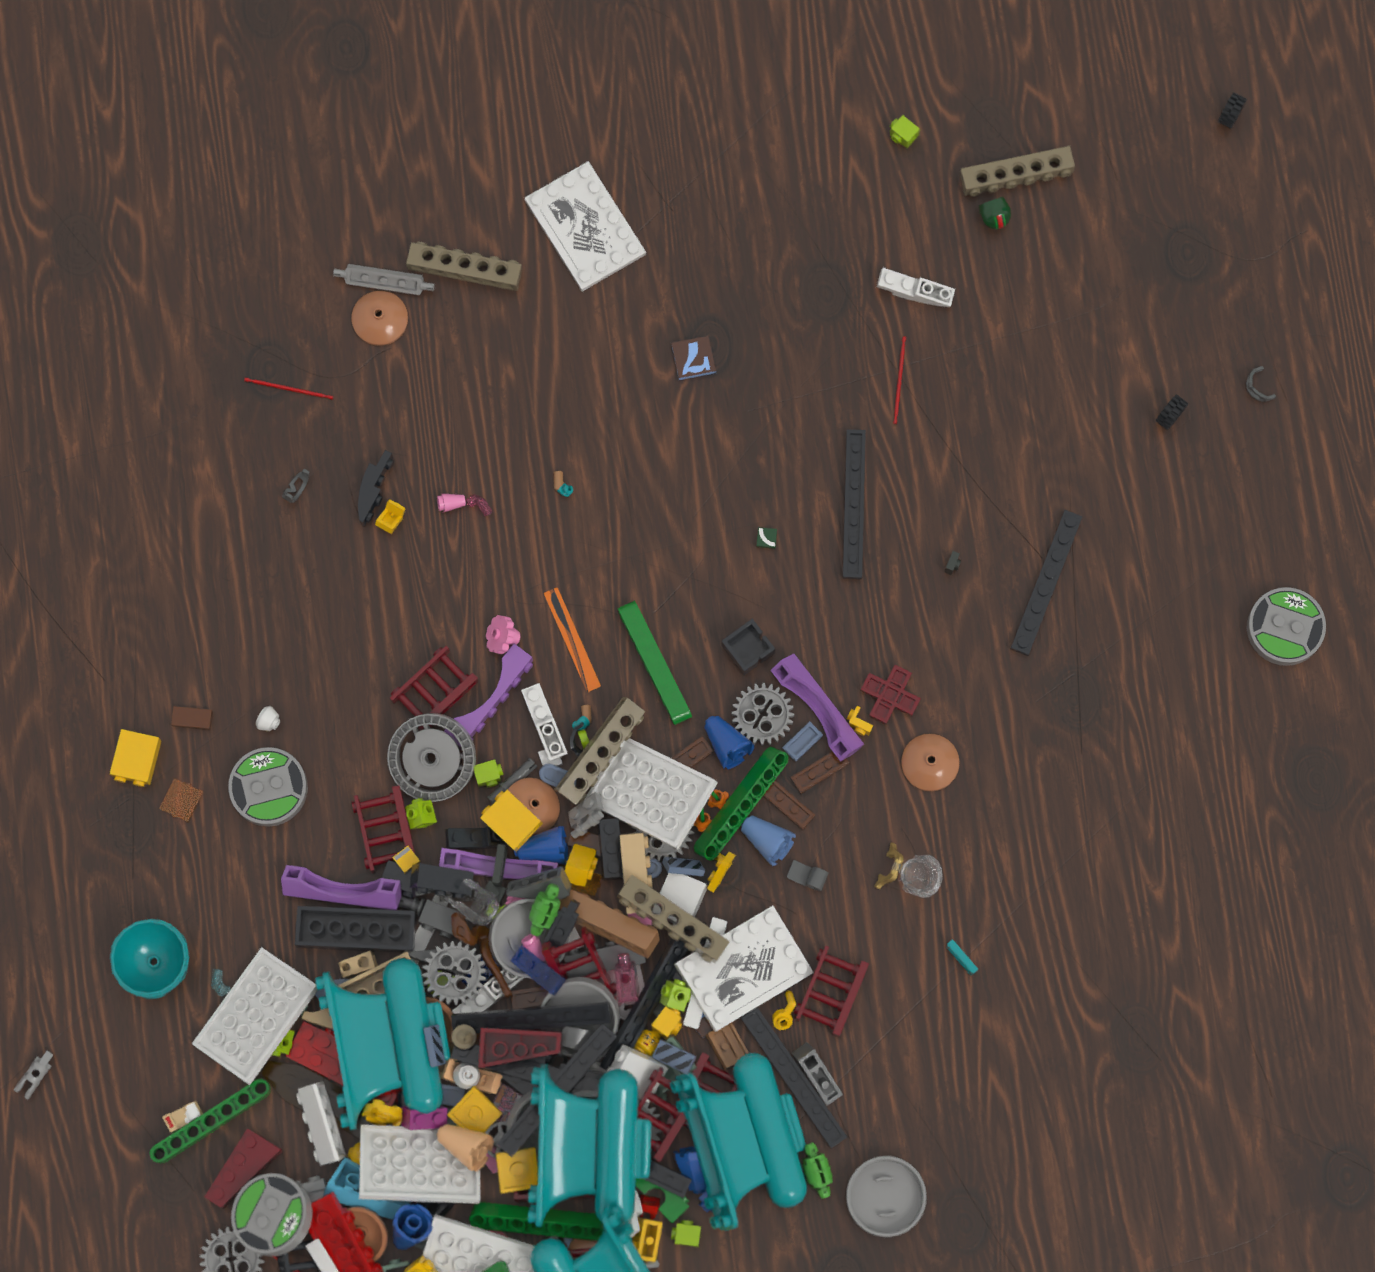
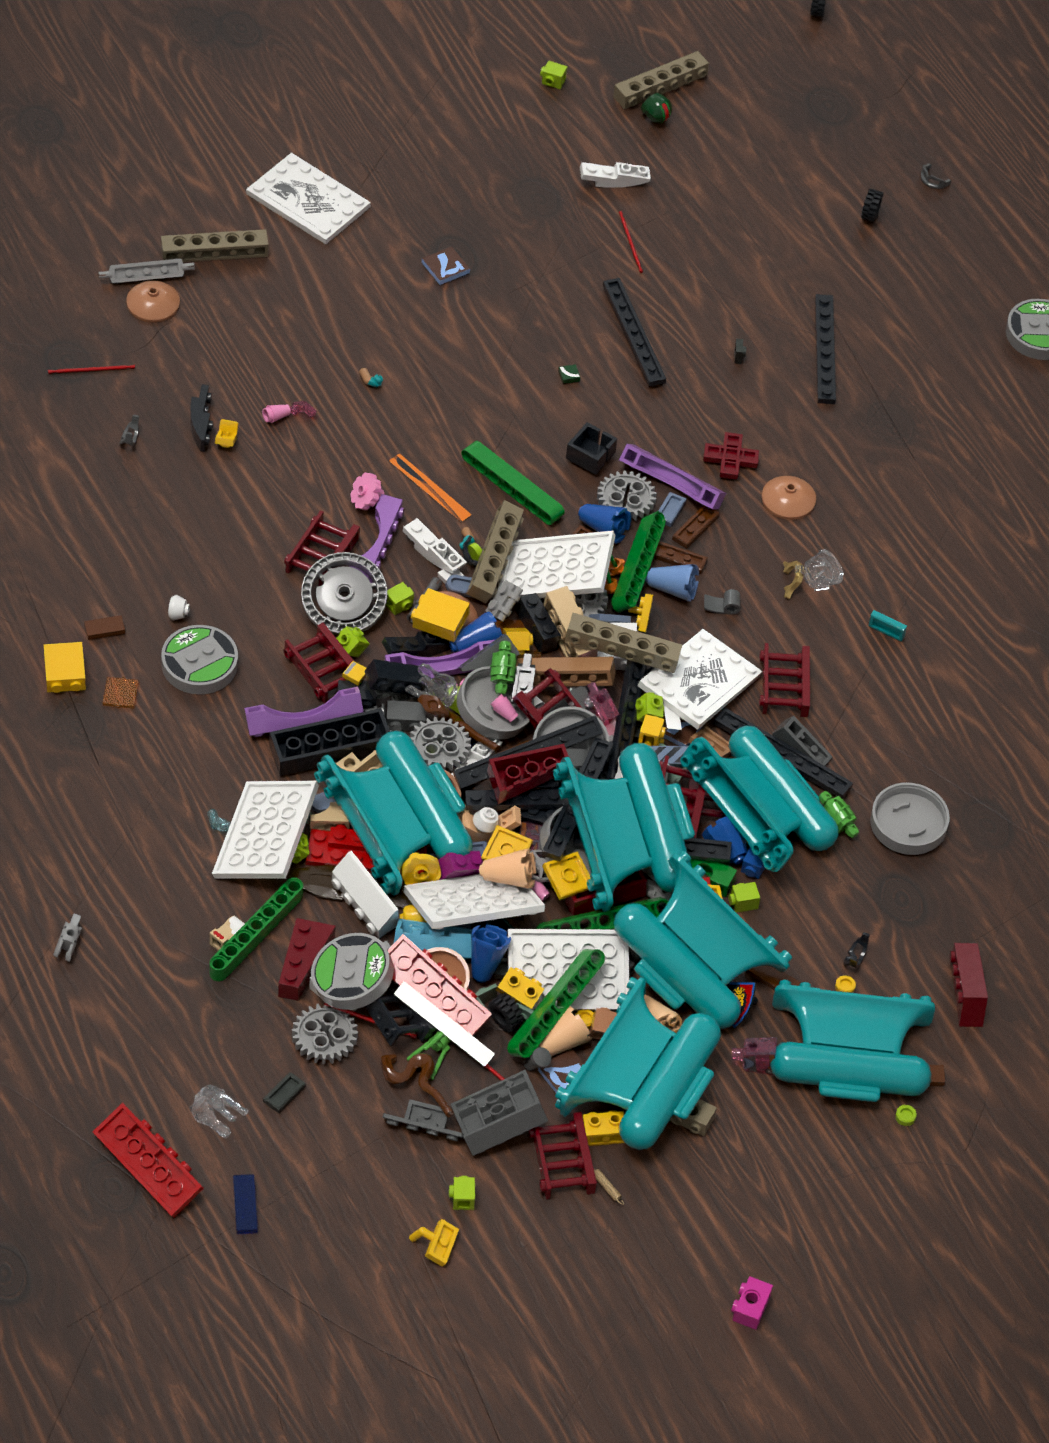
camera: 25 degrees left, 25 degrees down
(138, 946) = (145, 797): teal rock -> none
(434, 1045) = (449, 794): sand blue tile -> none
(463, 1036) = (472, 782): dark tan hat -> none
(499, 865) = (443, 655): pearl dark grey tile -> none
(538, 970) = (518, 713): clear blue tile -> none
(785, 1014) = (747, 708): yellow plate -> none
(860, 726) = (716, 480): yellow bracket -> none

